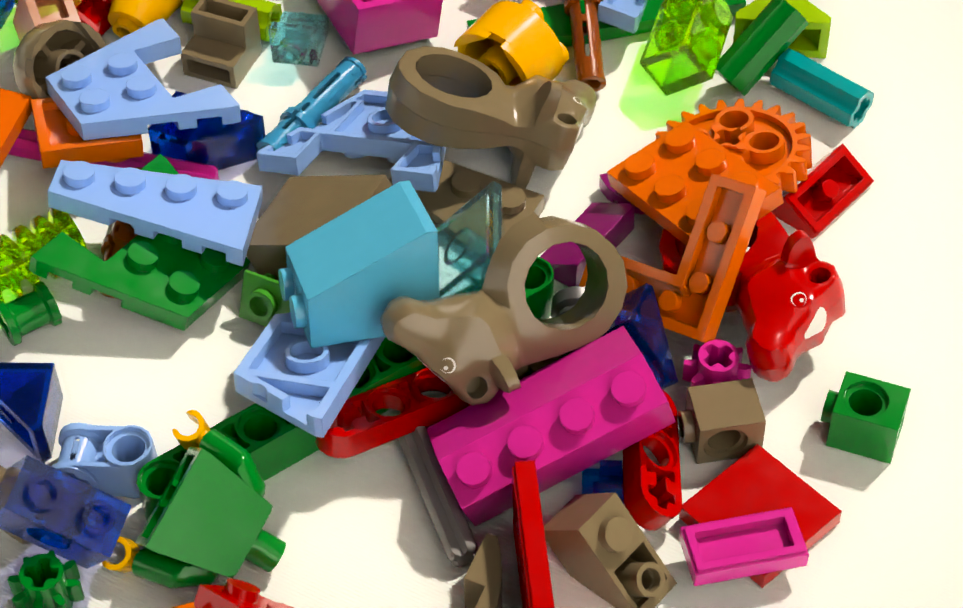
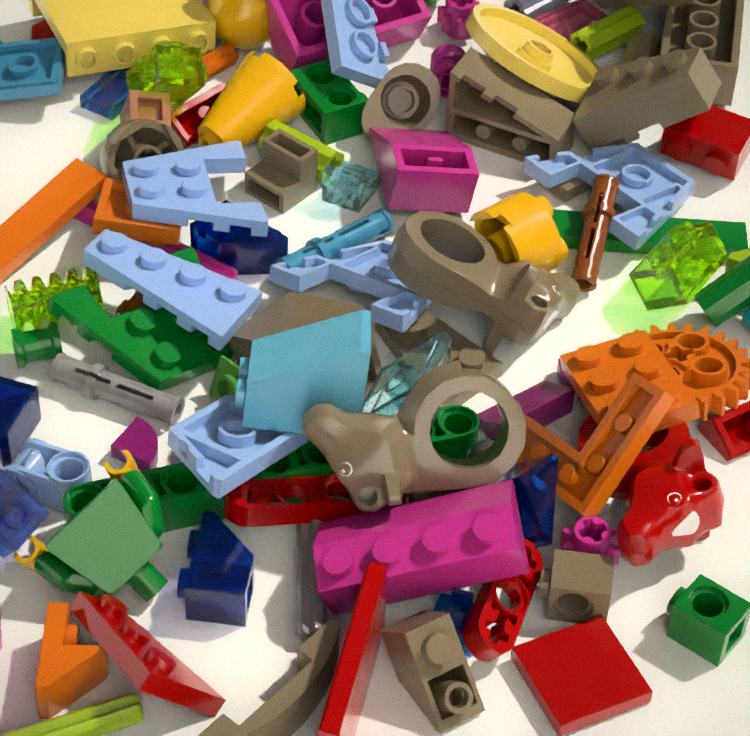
camera: 15 degrees right, 5 degrees down
(117, 337) = (99, 382): none -> light grey pin
(186, 392) = (140, 441): none -> magenta tile
(343, 518) = (220, 575): none -> clear blue slope
(743, 546) = (551, 694): dark pink tile -> none

